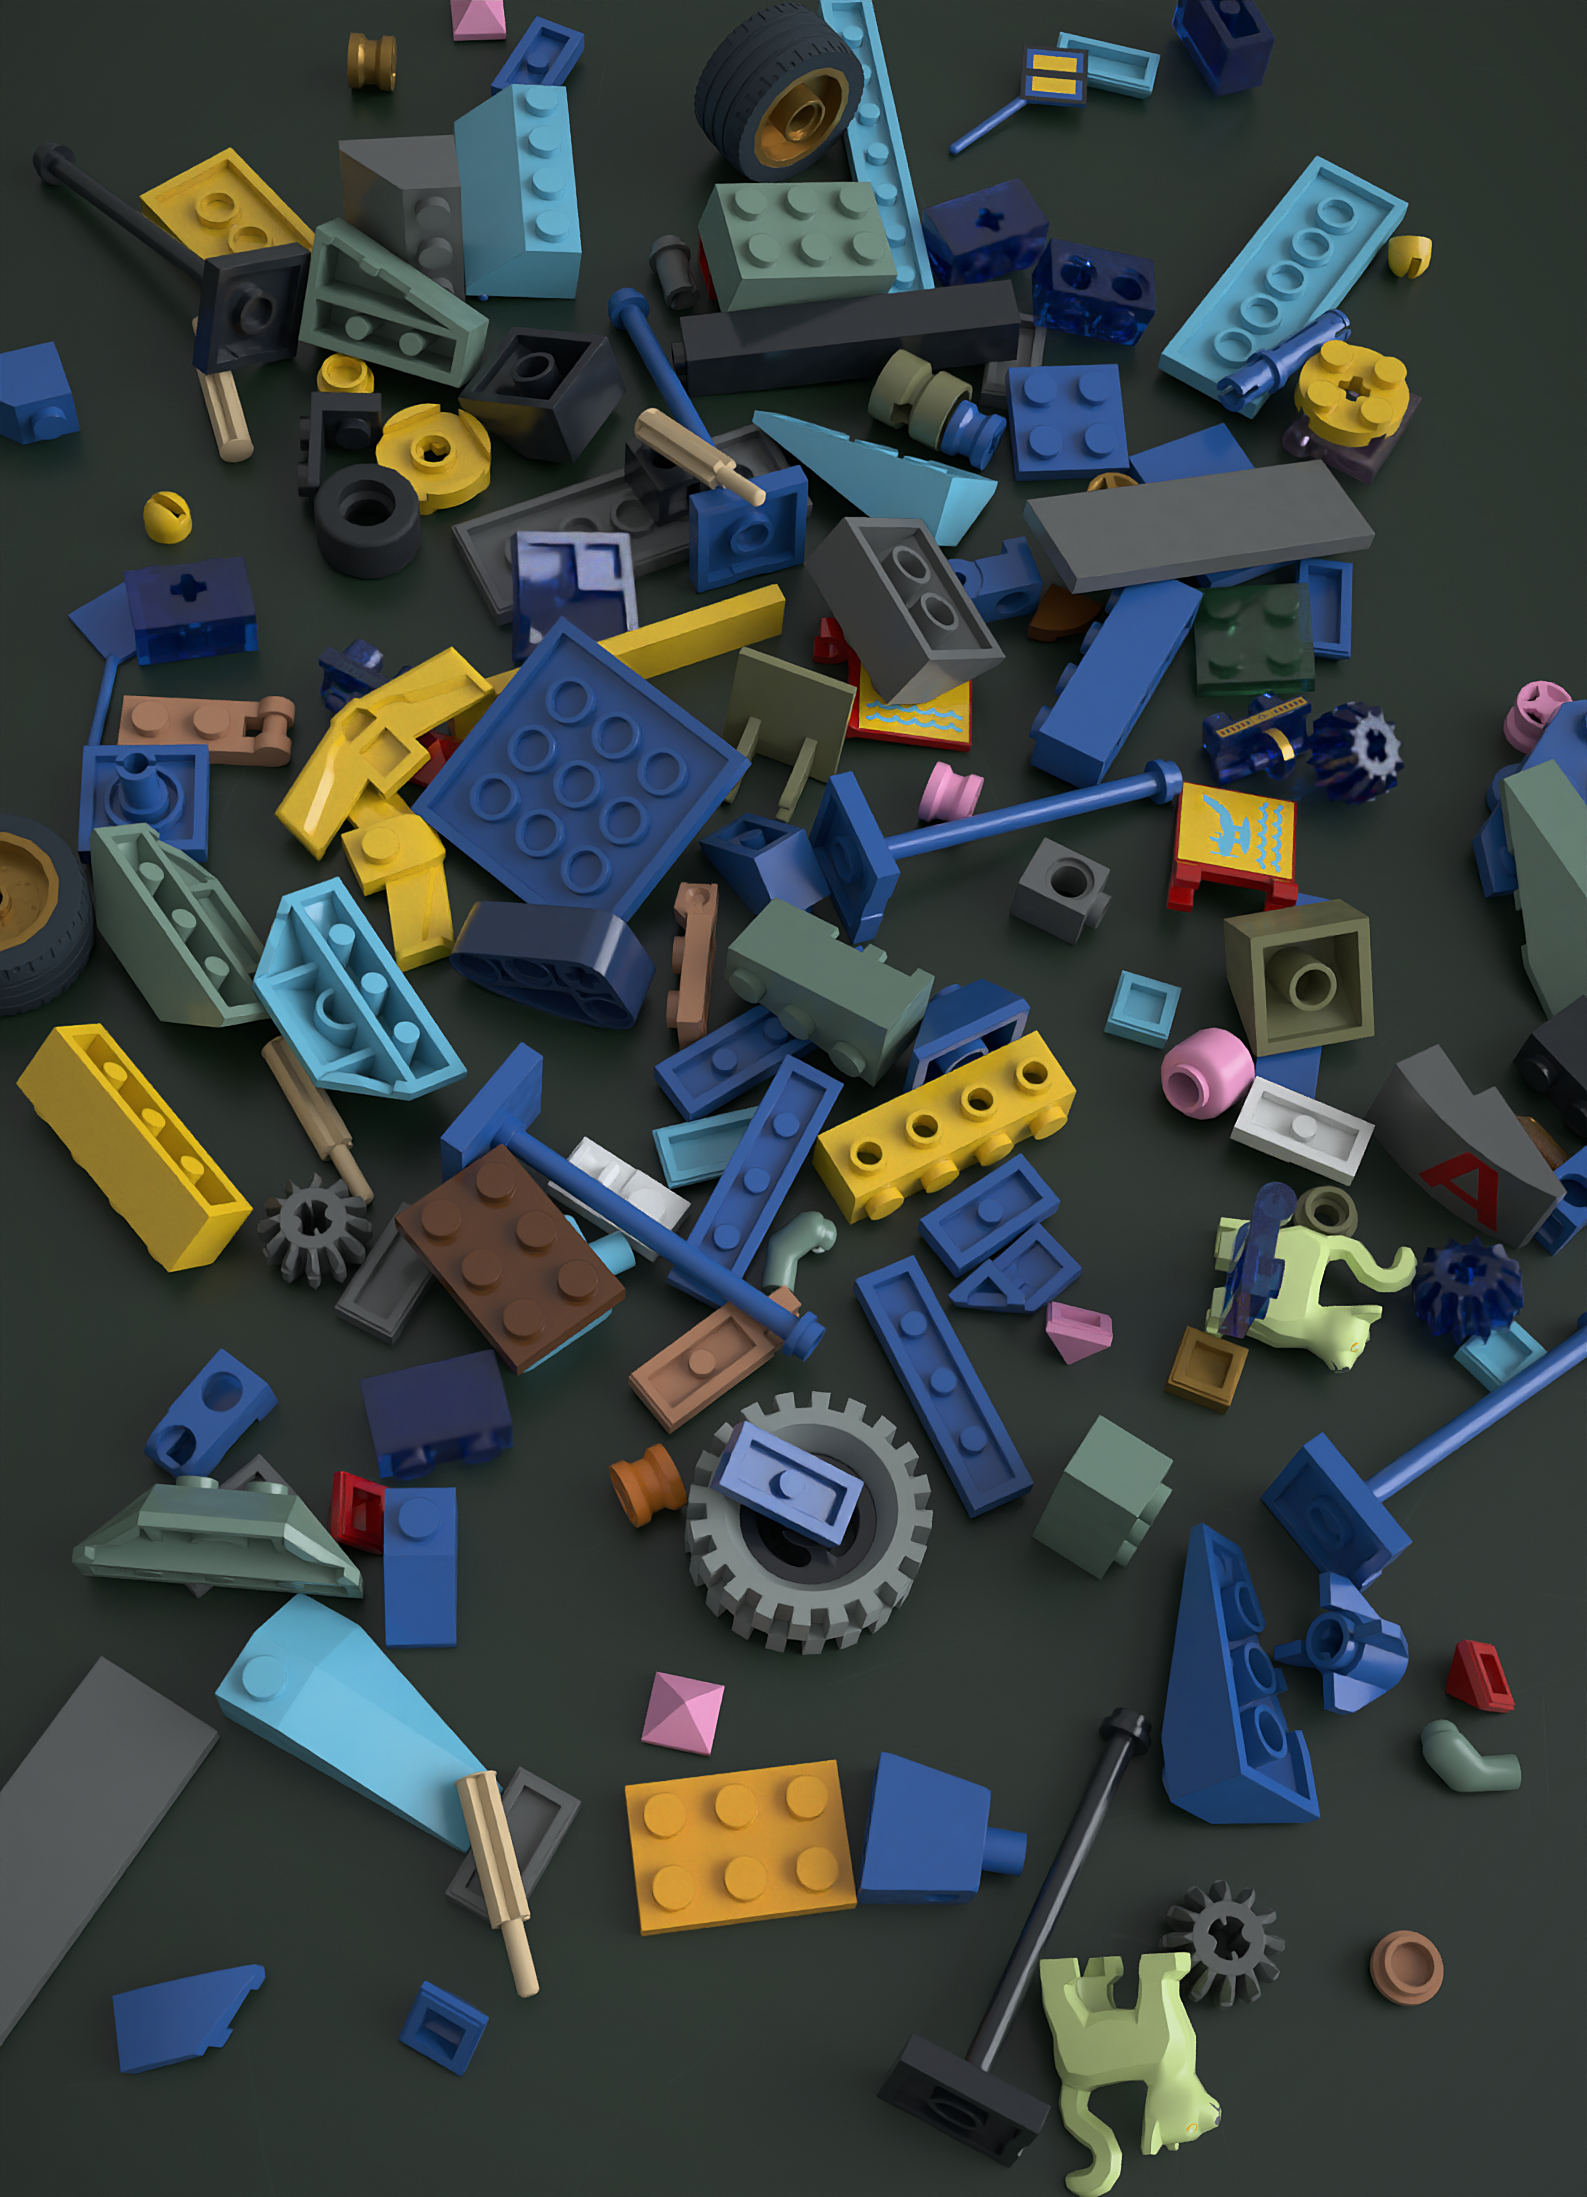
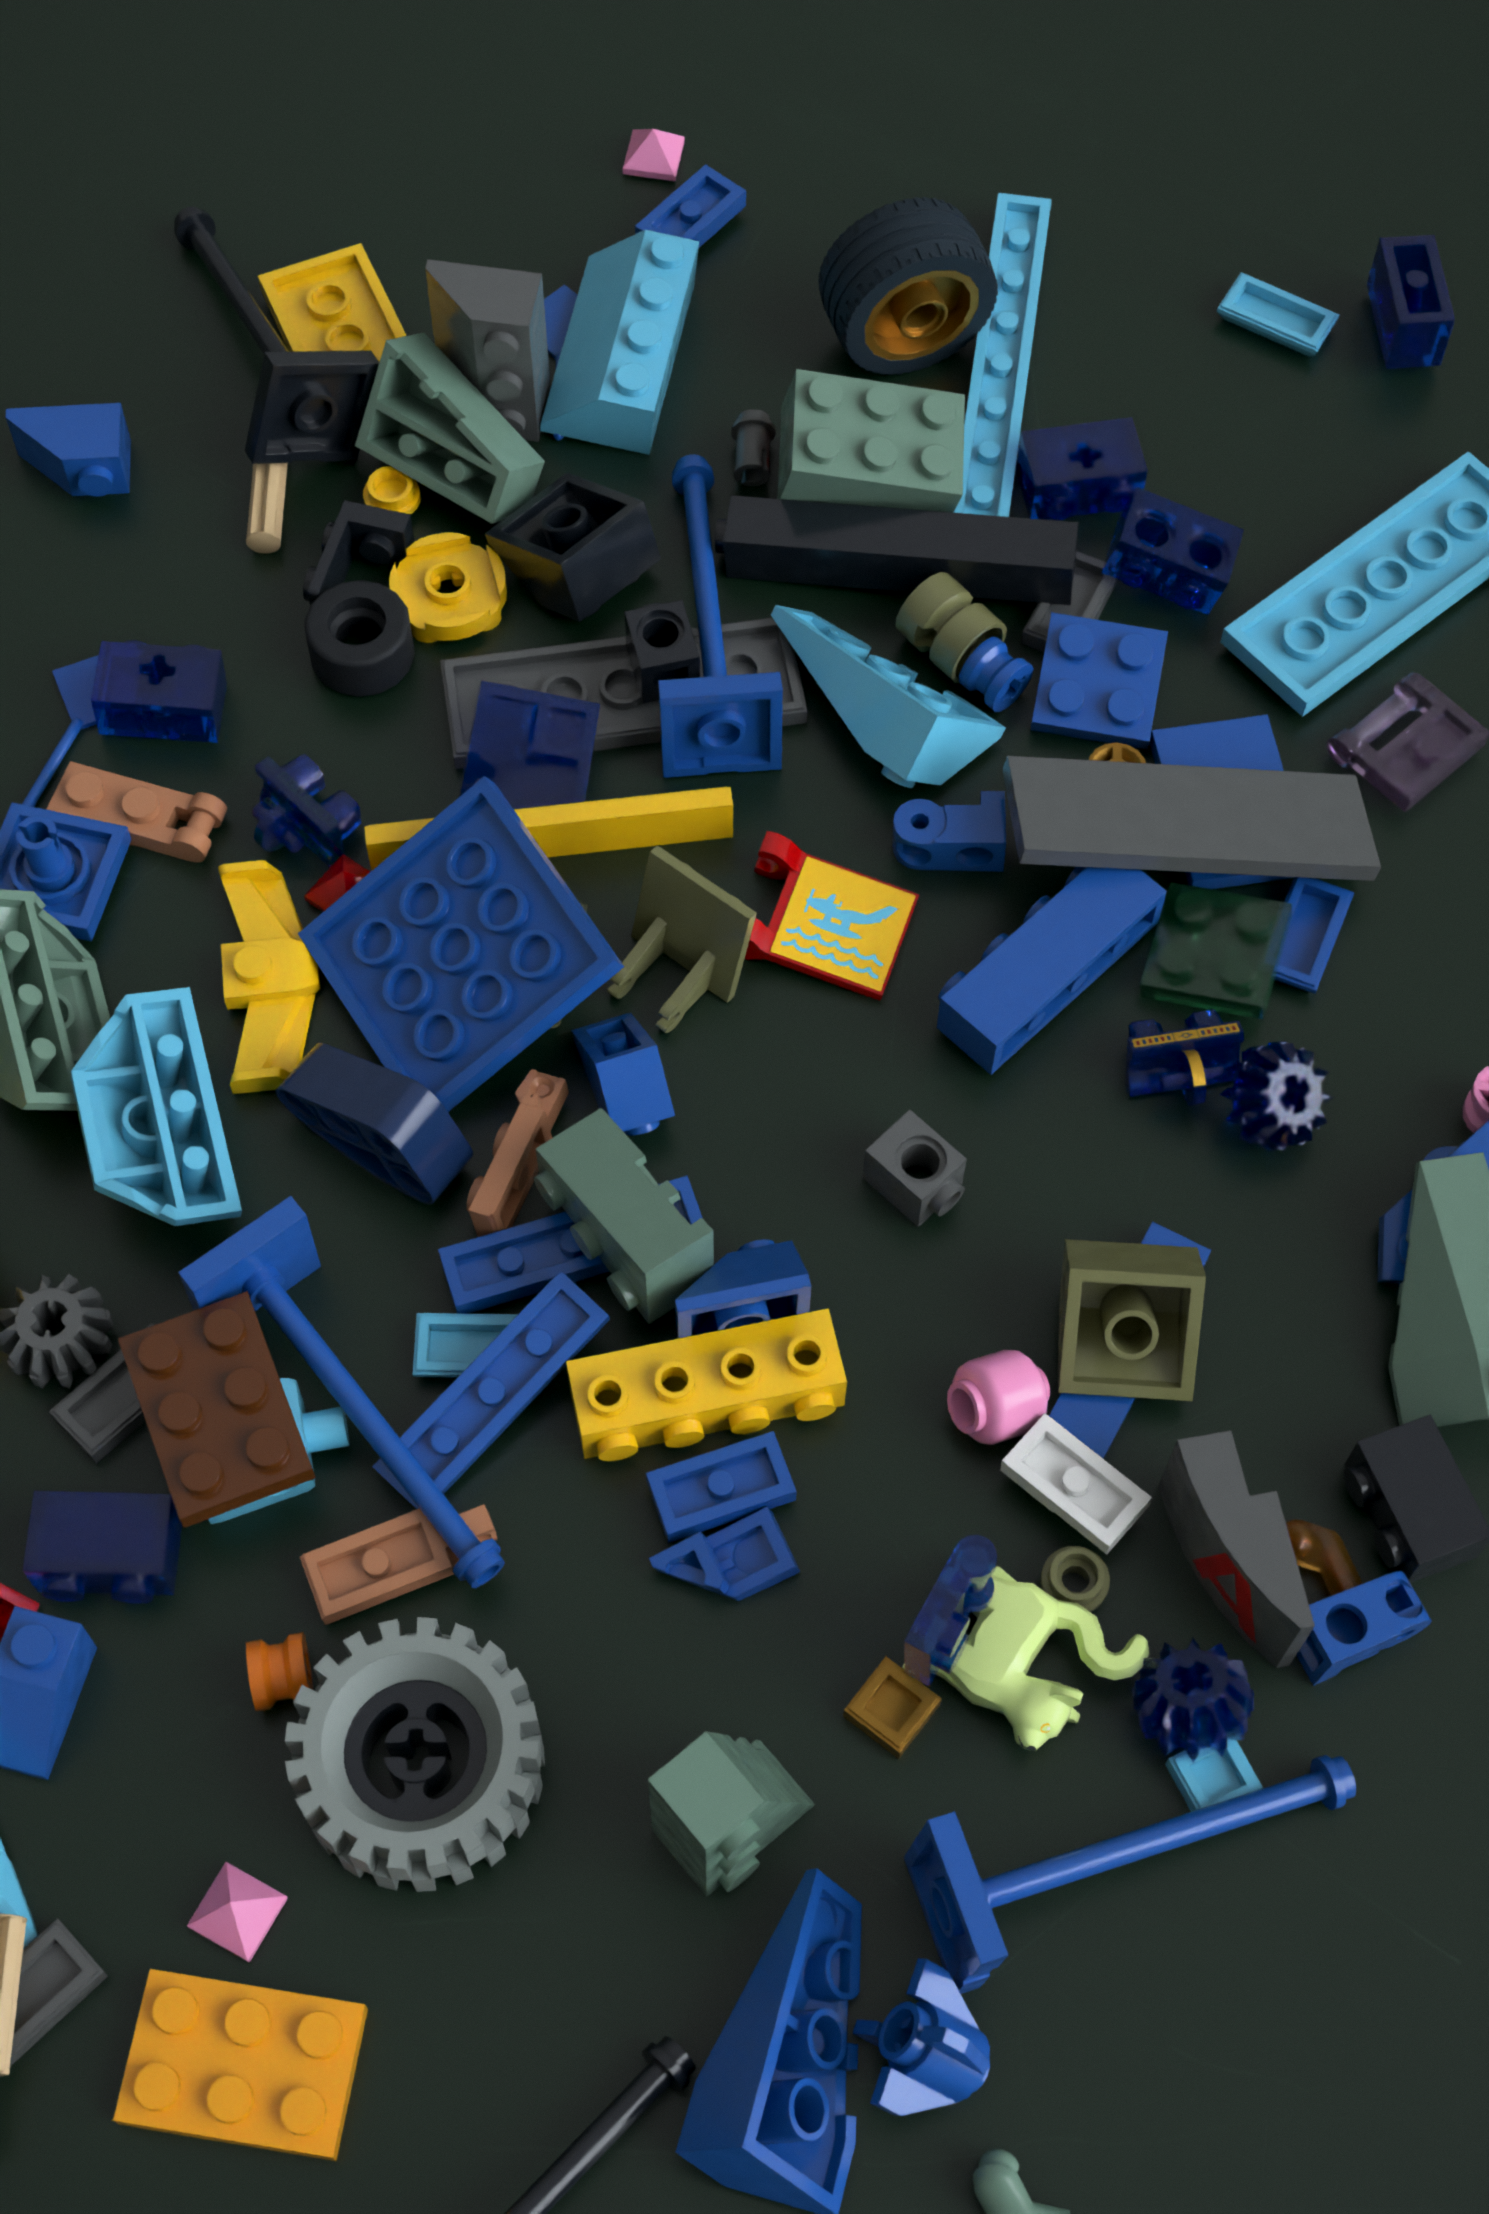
camera: 25 degrees right, 0 degrees up
(160, 521) = (167, 600): yellow hinge -> none
(316, 1115) = (104, 1232): tan axle -> none
(371, 62) = (528, 182): pearl gold wheel -> none
(377, 745) = (281, 863): yellow plate -> none
(628, 1183) = (372, 1366): white plate -> none
(694, 455) = (676, 640): tan axle -> none
(787, 1484) = (393, 1712): plate -> none
(790, 1243) = (510, 1463): sand green arm -> none
(862, 862) = (712, 1085): blue tile -> none
(902, 608) = (848, 839): dark grey slope -> none
(930, 1837) = (425, 2113): blue torso -> none
(943, 1386) = (610, 1651): blue plate -> none
(949, 795) = (836, 1044): bright pink wheel -> none
(1047, 78) = (1210, 318): piece -> none
(1063, 615) = (1023, 882): reddish brown tile -> none
(1077, 1331) = (769, 1629): bright pink slope -> none
(1142, 1009) = (962, 1312): medium azure tile -> none
(1233, 842) = (1117, 1159): flag -> none
(1271, 368) = (1327, 669): blue pin -> none
(1356, 369) = (1414, 684): yellow plate -> none
(1479, 1677) = (1063, 2118): red slope -> none

